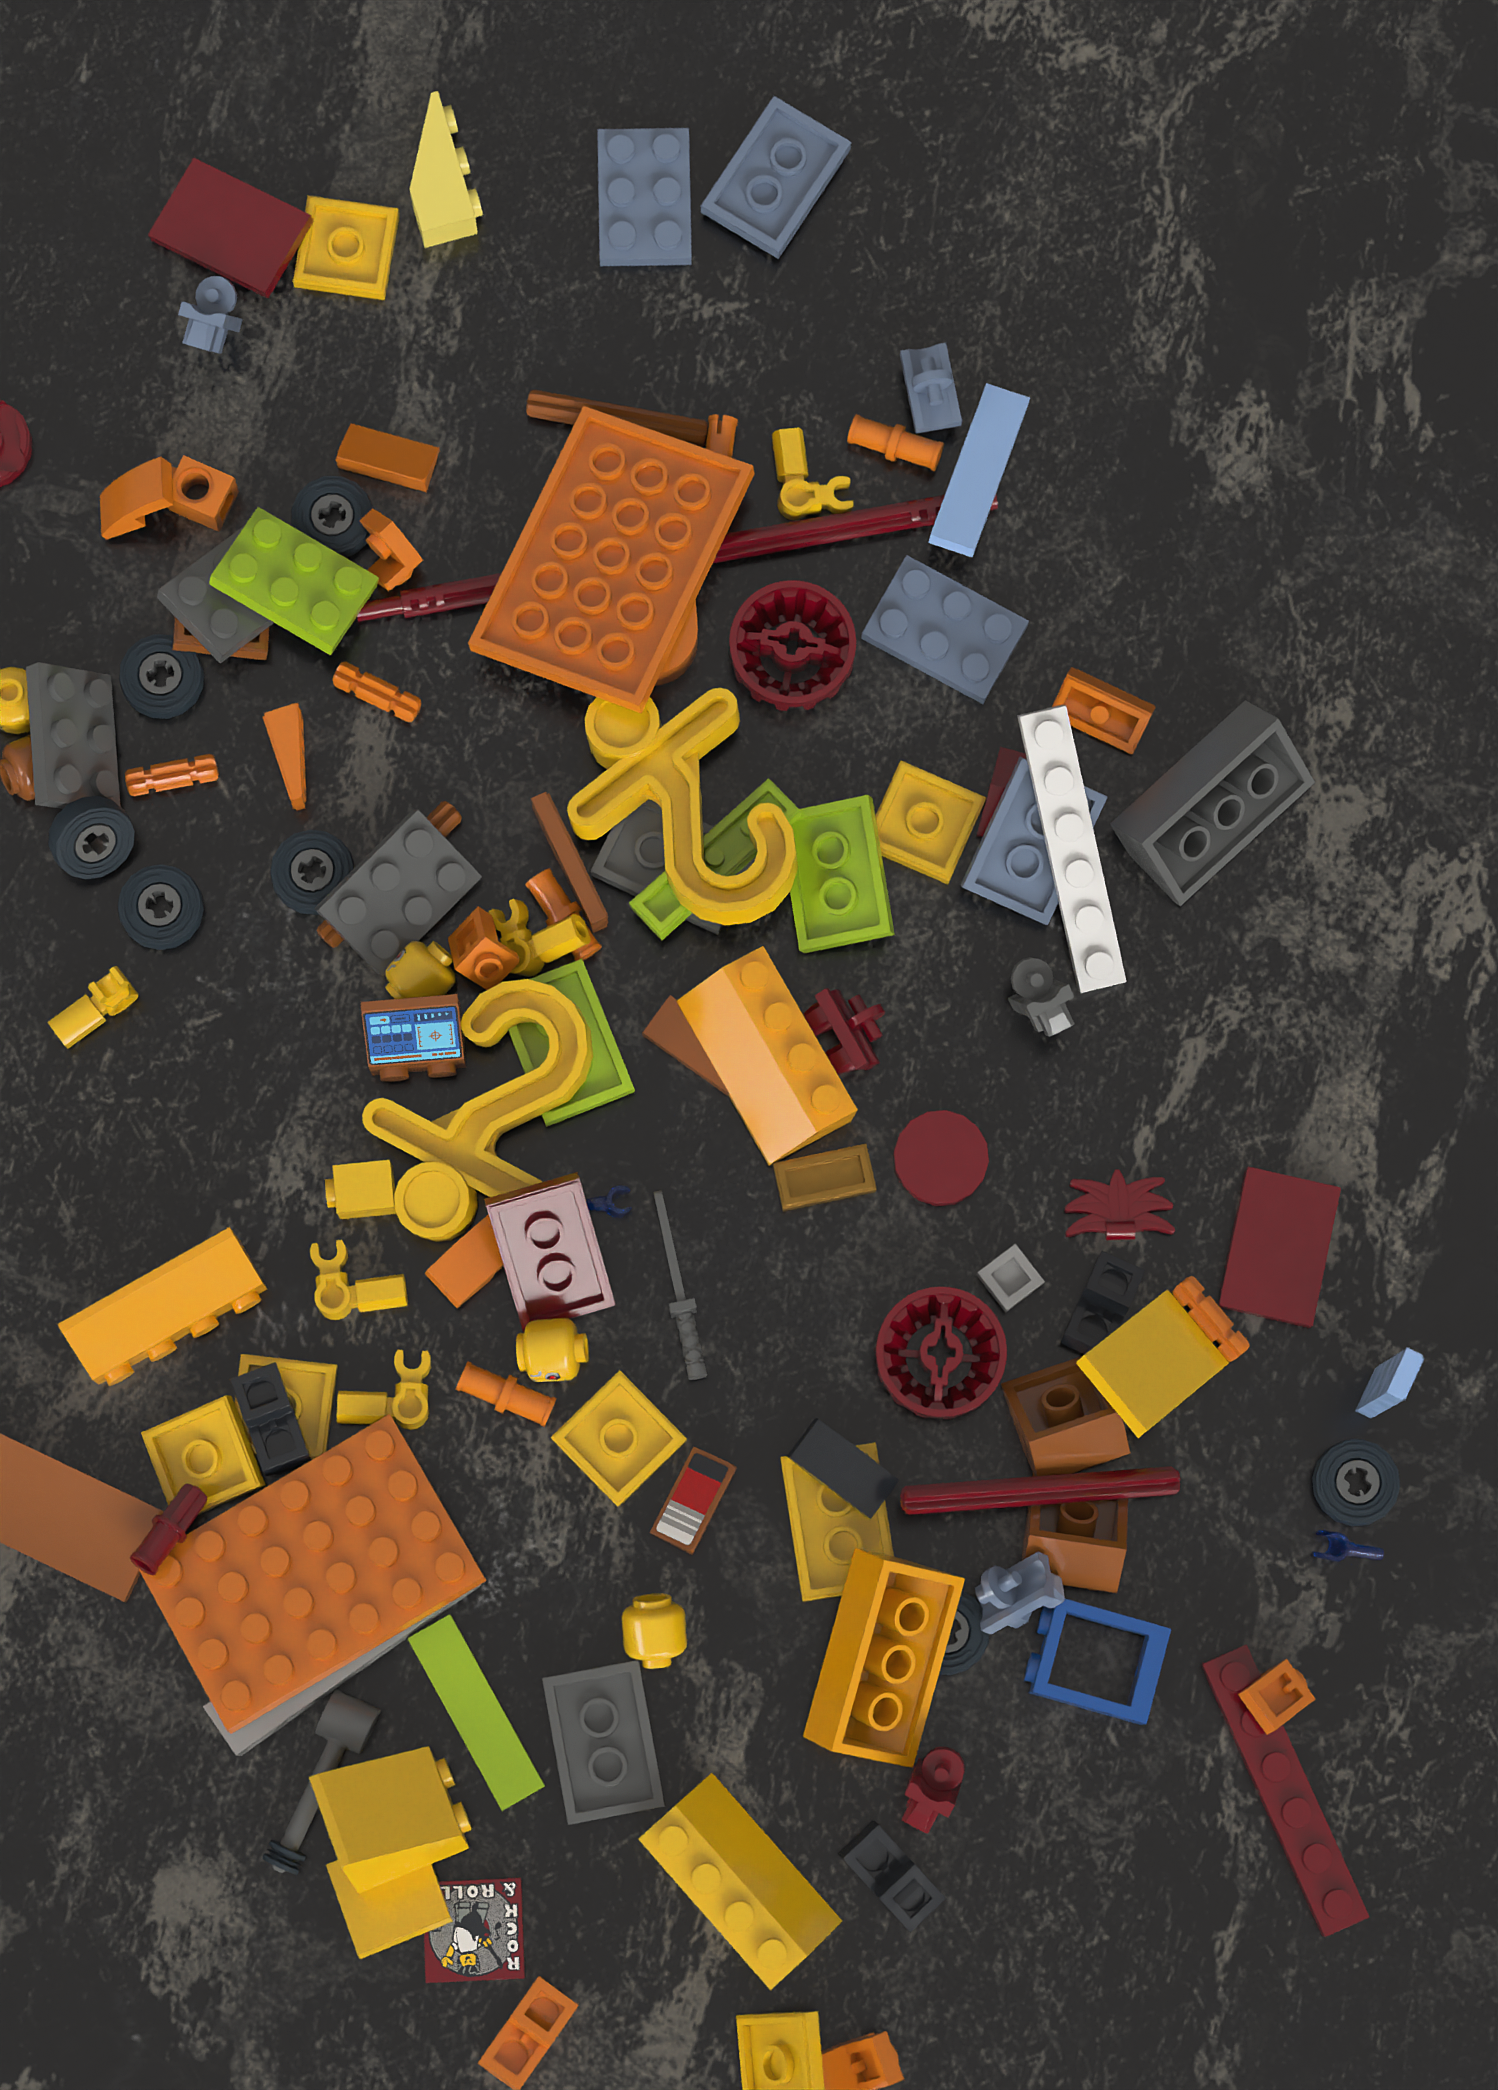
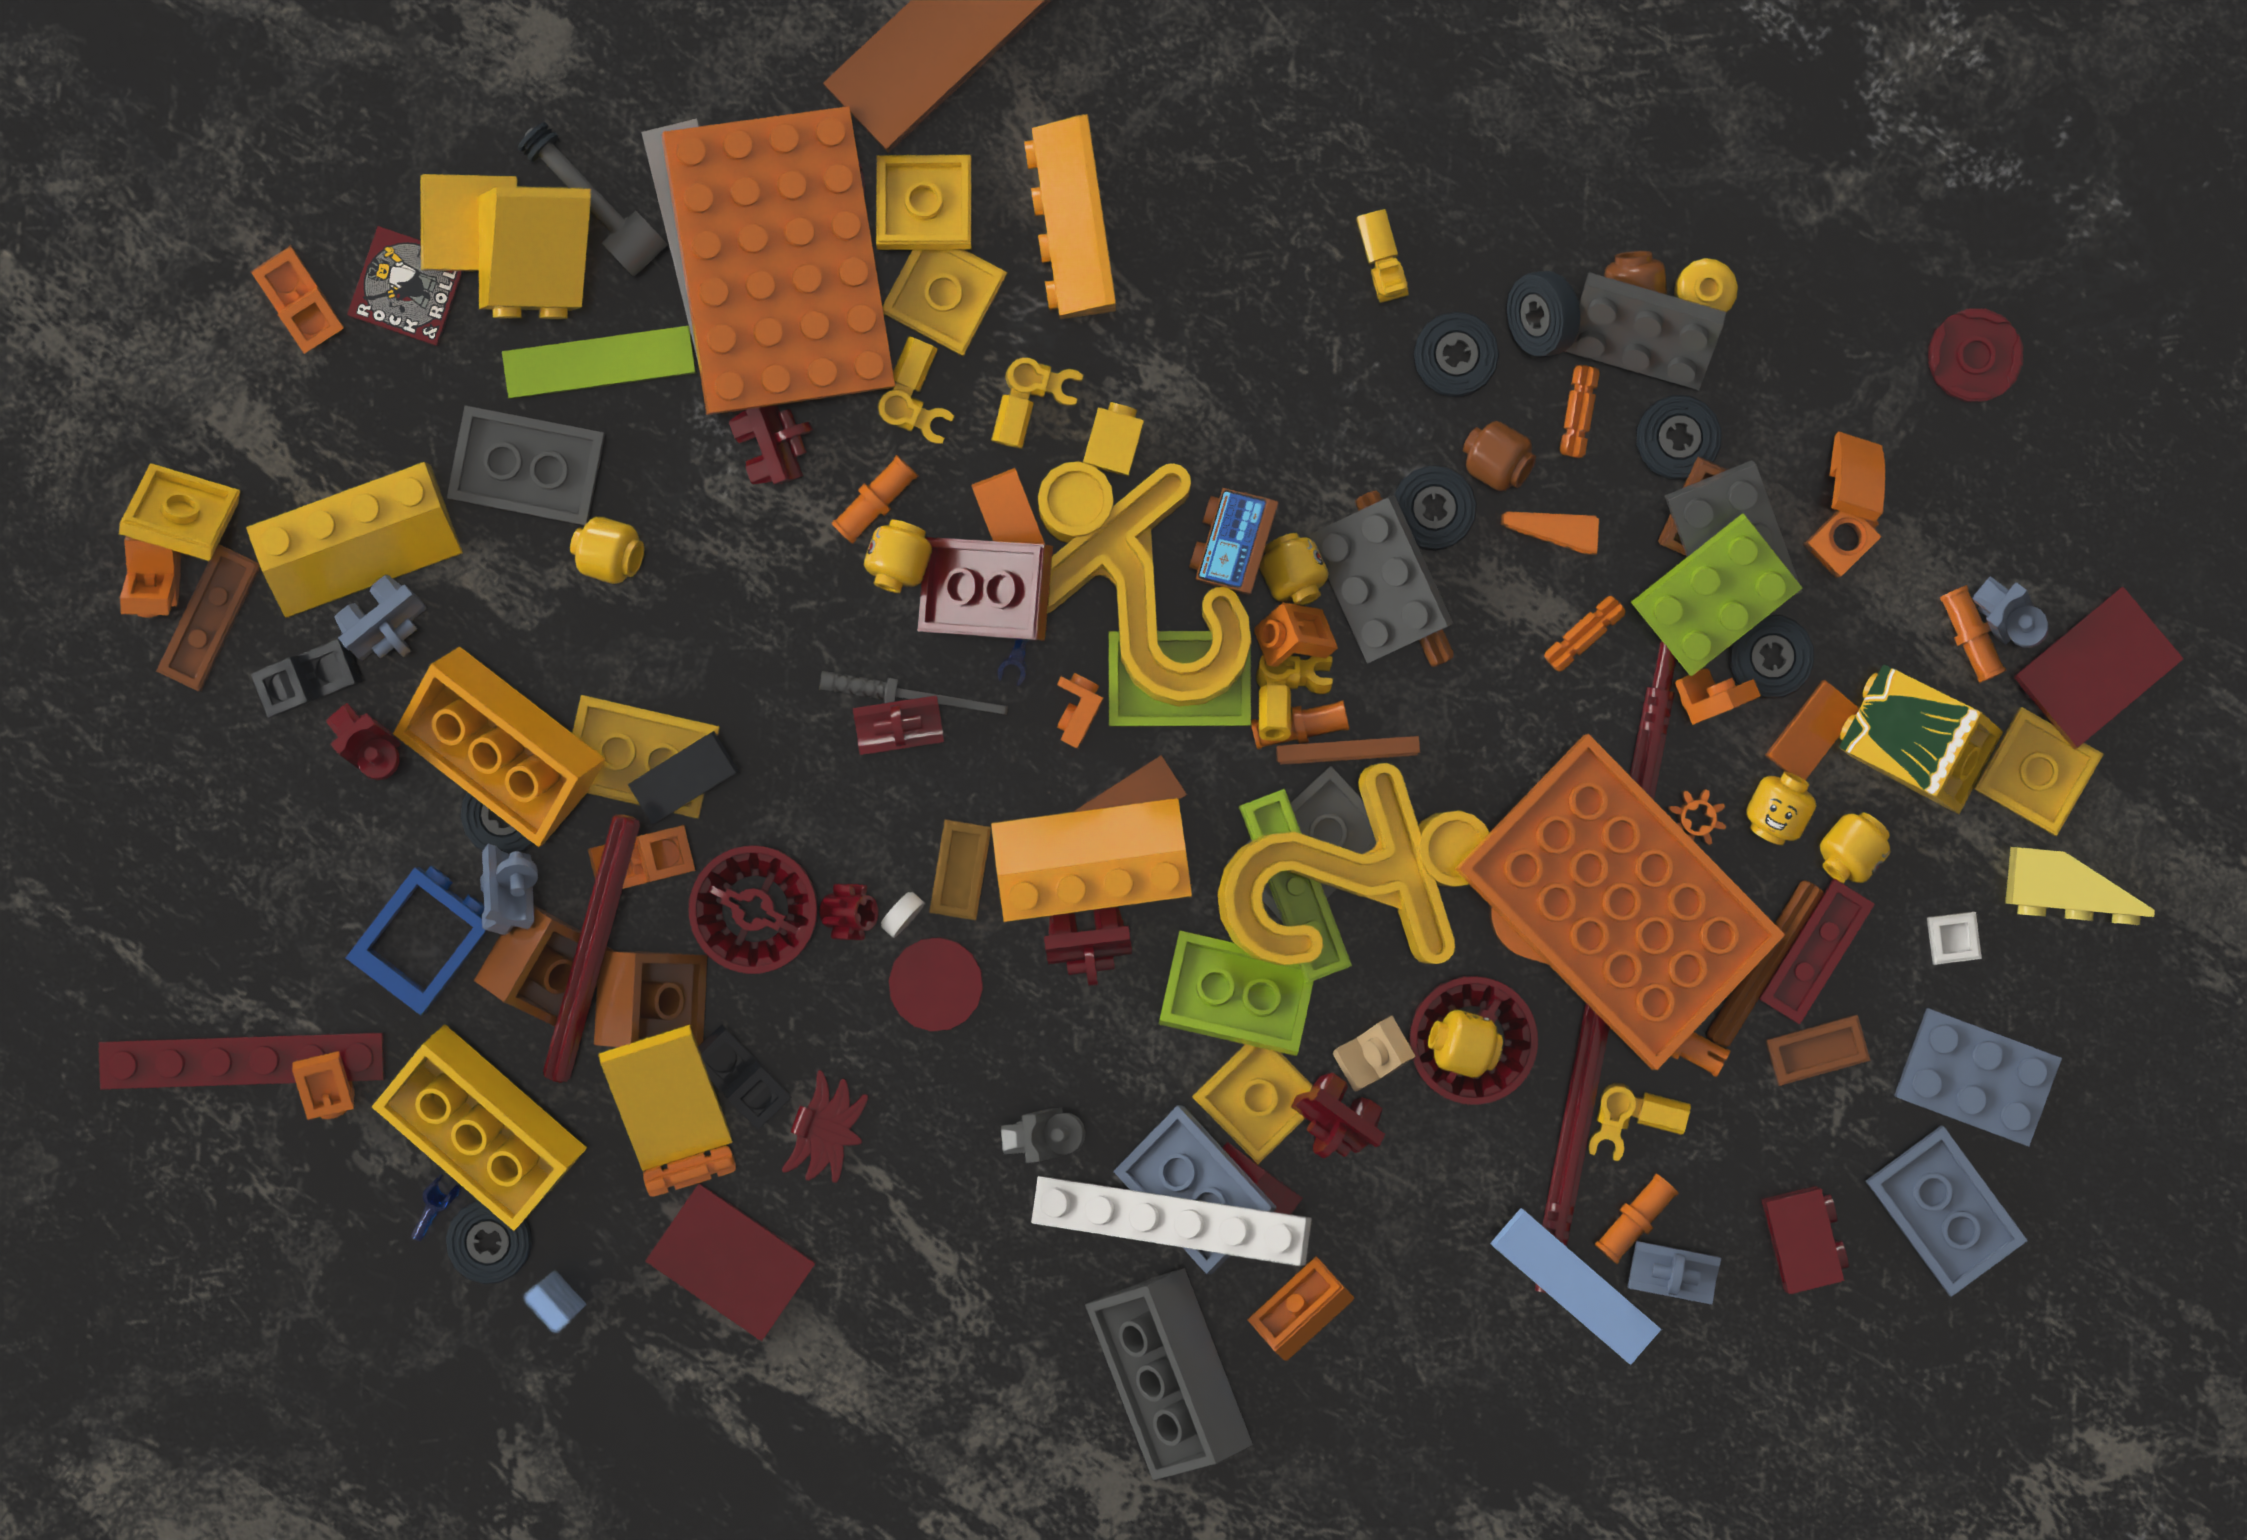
camera: 115 degrees right, 10 degrees up
(169, 1529) = (867, 147): dark red axle -> none
(241, 829) = (1499, 456): none -> dark orange head
(242, 348) = (1972, 634): none -> orange pin
(270, 1419) = (934, 276): black slope -> none
(355, 358) = (1920, 738): none -> slope
(469, 454) = (1781, 808): none -> yellow head
(479, 376) = (1855, 848): none -> yellow head
(494, 525) = (1708, 811): none -> orange gear
(504, 1500) = (778, 440): none -> dark red hips
(526, 264) = (1954, 938): none -> white tile
(587, 375) = (1816, 951): none -> dark red plate
(618, 1438) = (794, 586): yellow tile -> none
(638, 1119) = (1078, 719): none -> orange bracket
(676, 344) = (1817, 1050): none -> dark orange tile
(693, 1500) = (711, 632): slope -> none
(711, 1284) = (898, 725): none -> dark red hips
(799, 642) = (1465, 1043): none -> yellow head
(812, 1816) = (384, 625): none -> sand blue hips
(841, 728) = (1374, 1054): none -> tan bracket
(853, 288) = (1804, 1239): none -> dark red brick
(873, 1996) = (209, 618): none -> dark orange tile
(888, 1213) = (902, 914): none -> white tile
(906, 1262) = (849, 911): none -> dark red gear
(920, 739) = (1334, 1123): none -> dark red hips
(925, 1461) = (653, 857): none -> orange slope
(944, 629) = (1436, 1192): sand blue plate -> none
(1010, 1278) = (798, 1002): light grey plate -> none
(1253, 1531) = (479, 1127): none -> yellow slope

